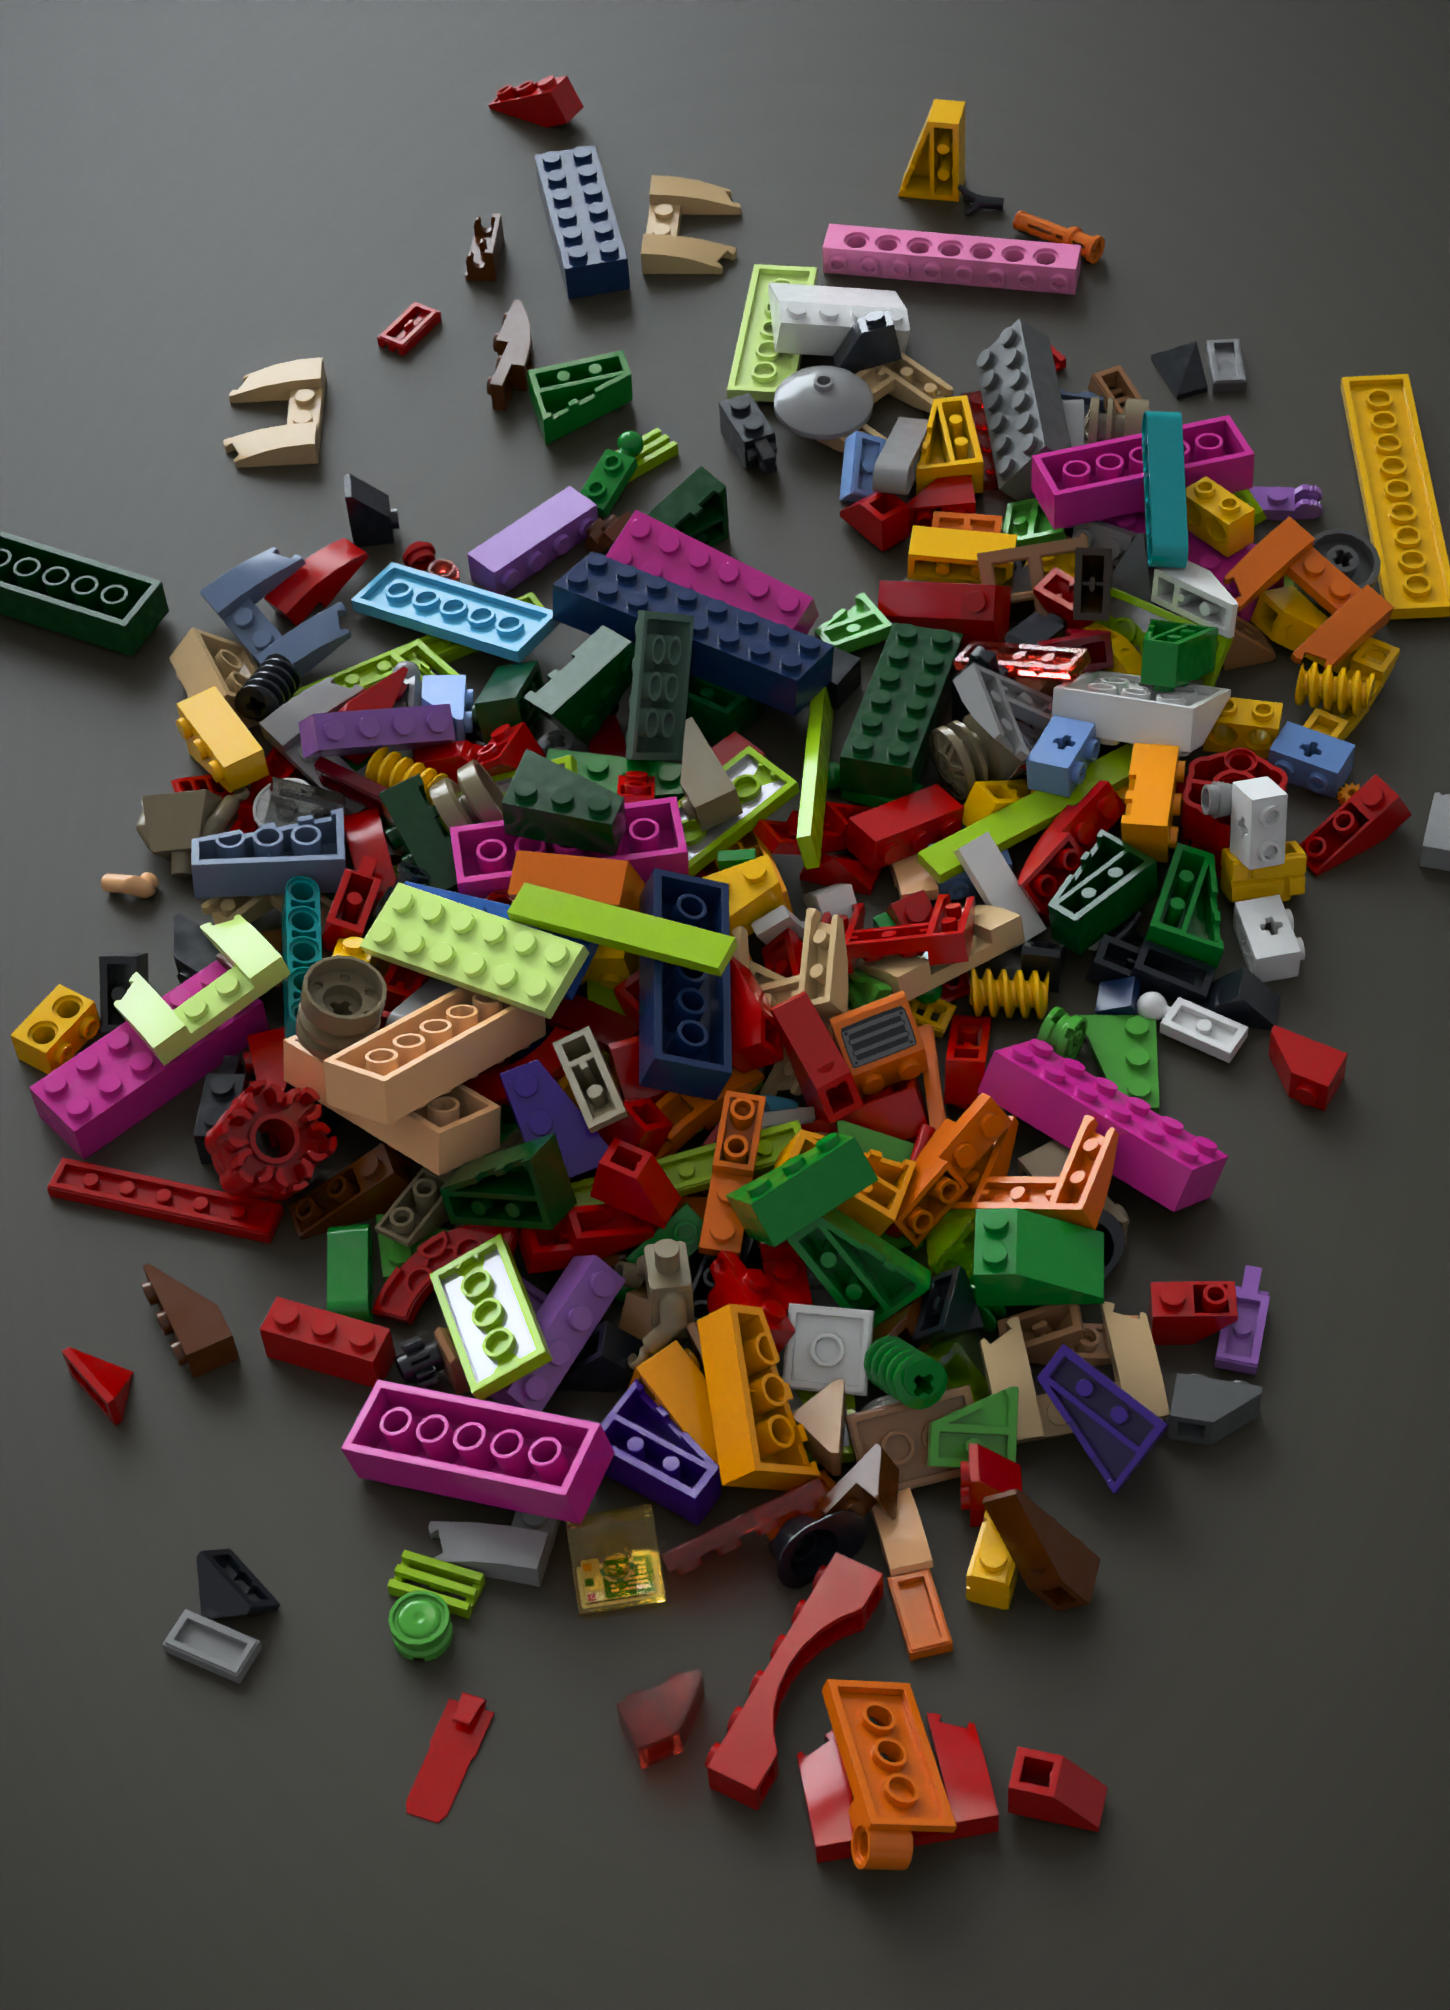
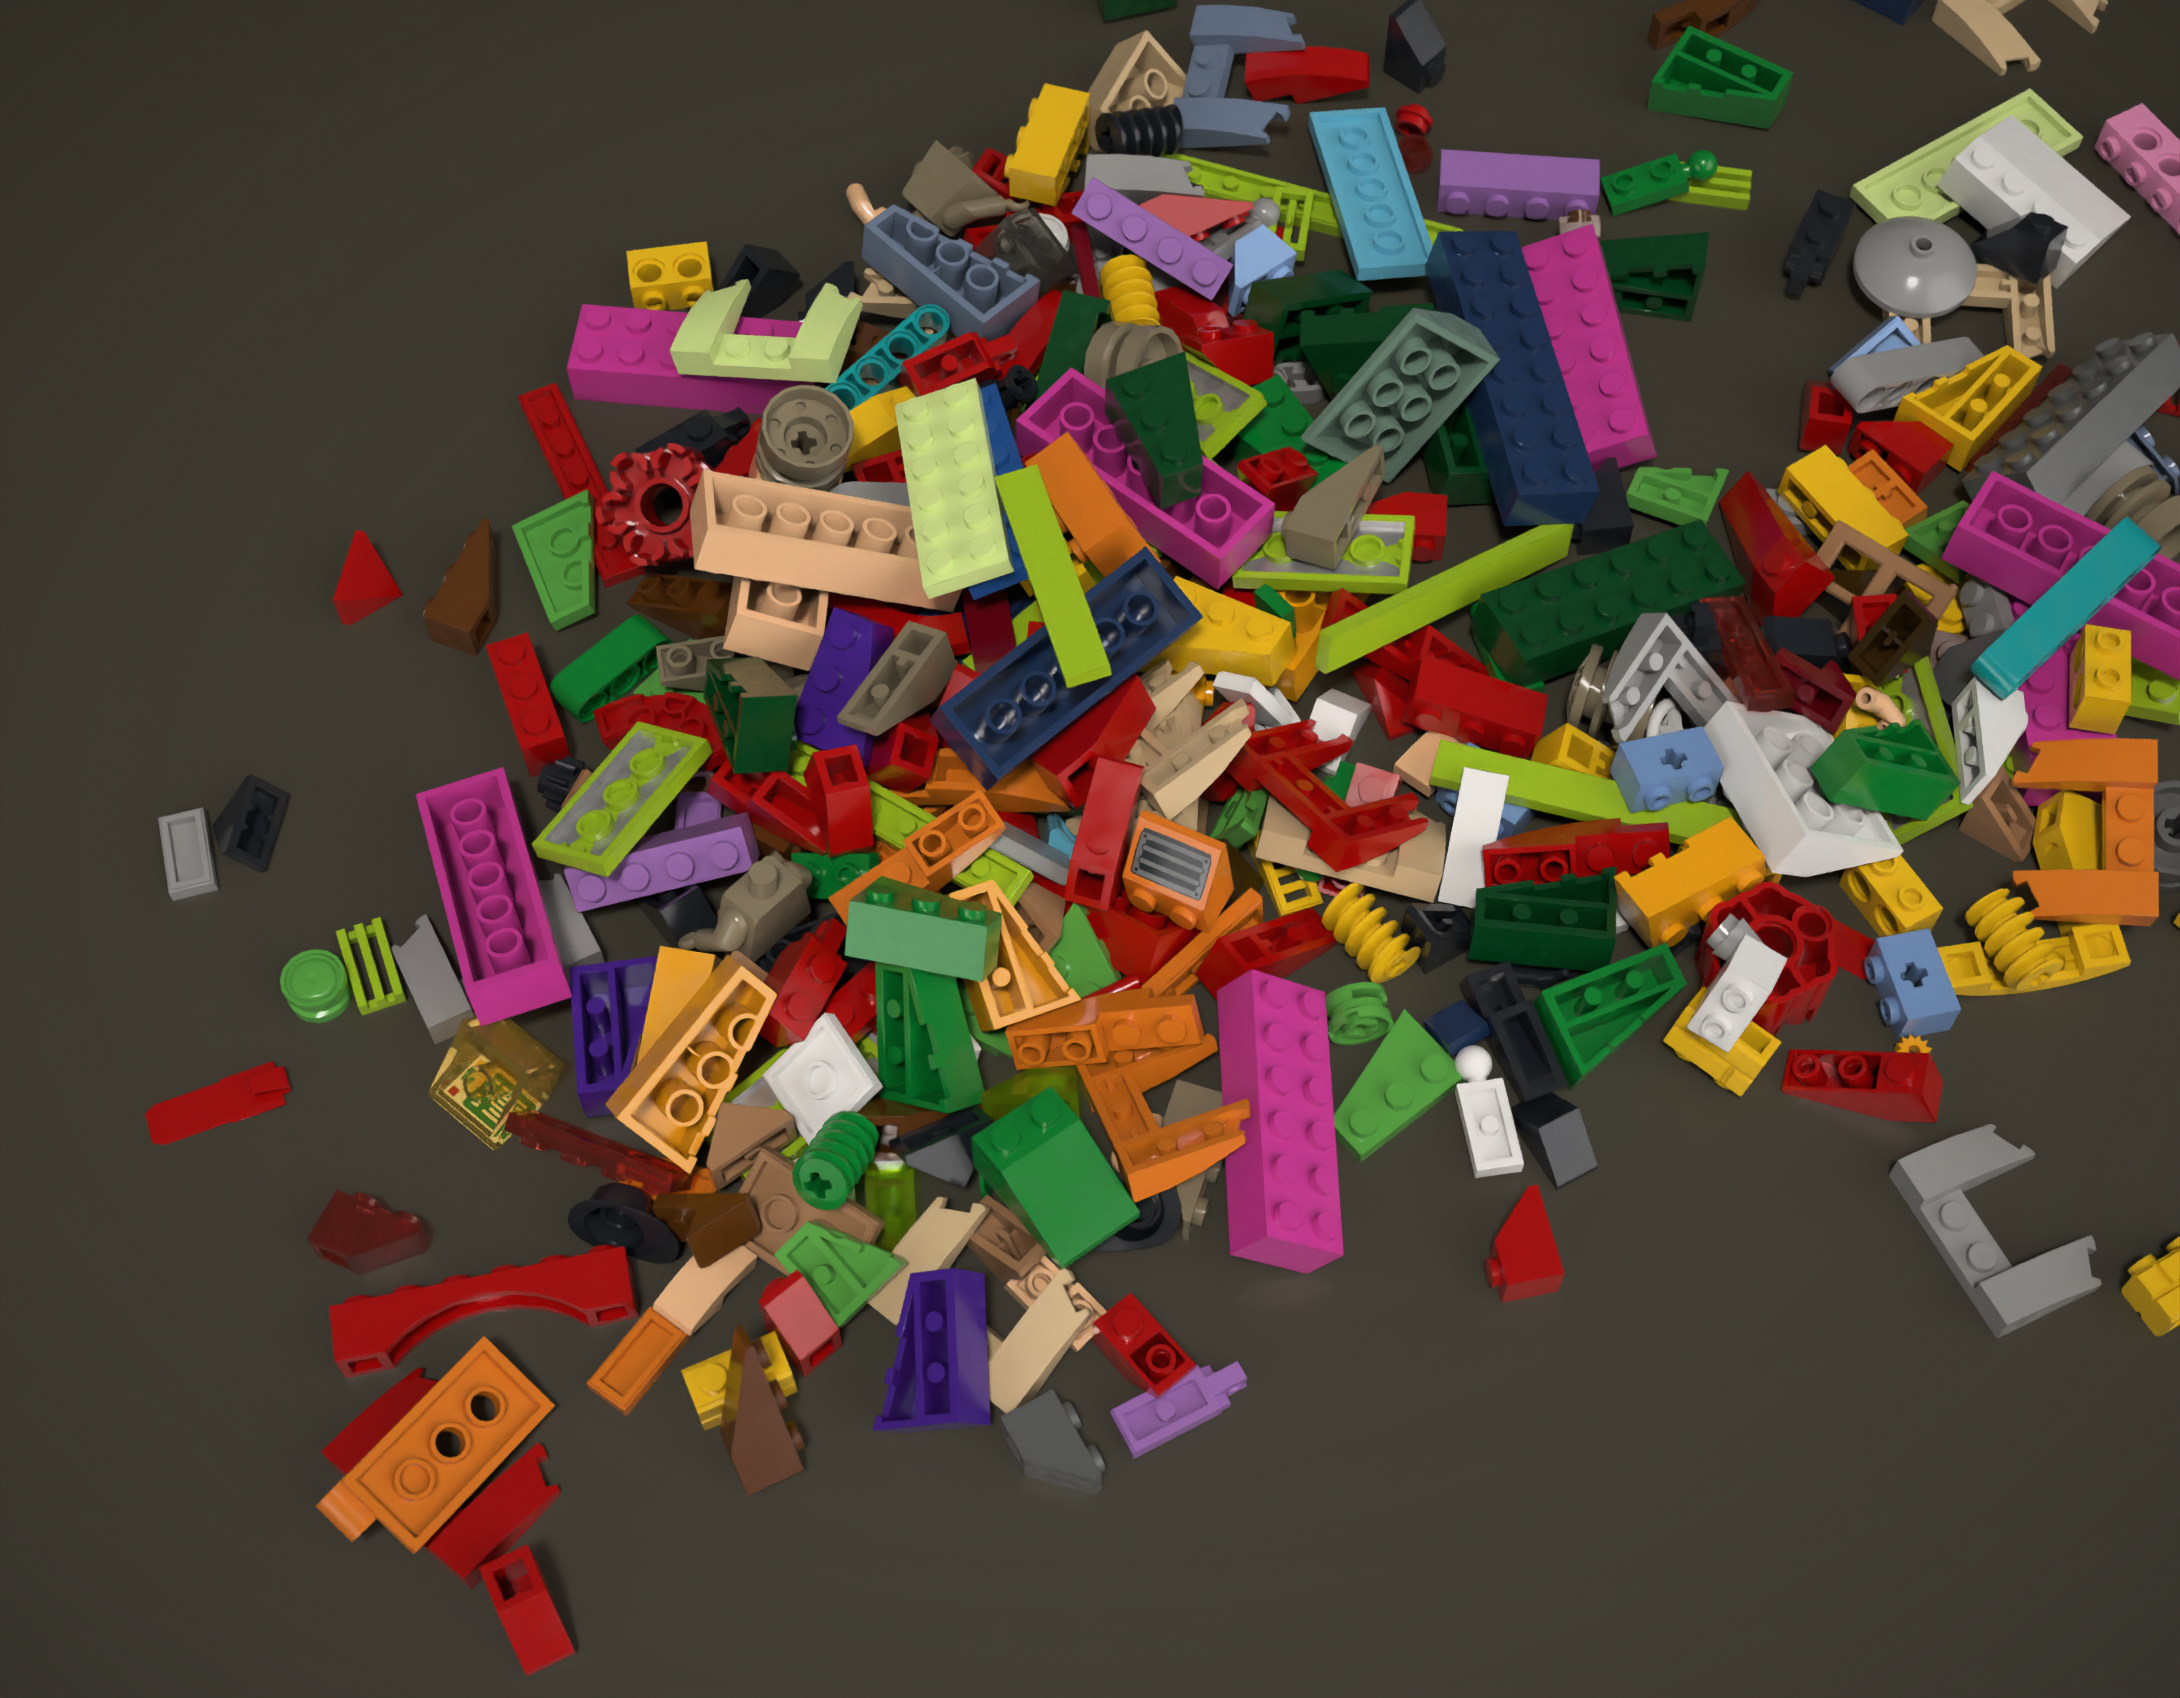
camera: 45 degrees right, 10 degrees up
(221, 1248) = (561, 557): none -> bright green wing
(1126, 628) = (1881, 705): none -> light nougat arm
(1268, 938) = (1656, 1081): white brick -> none

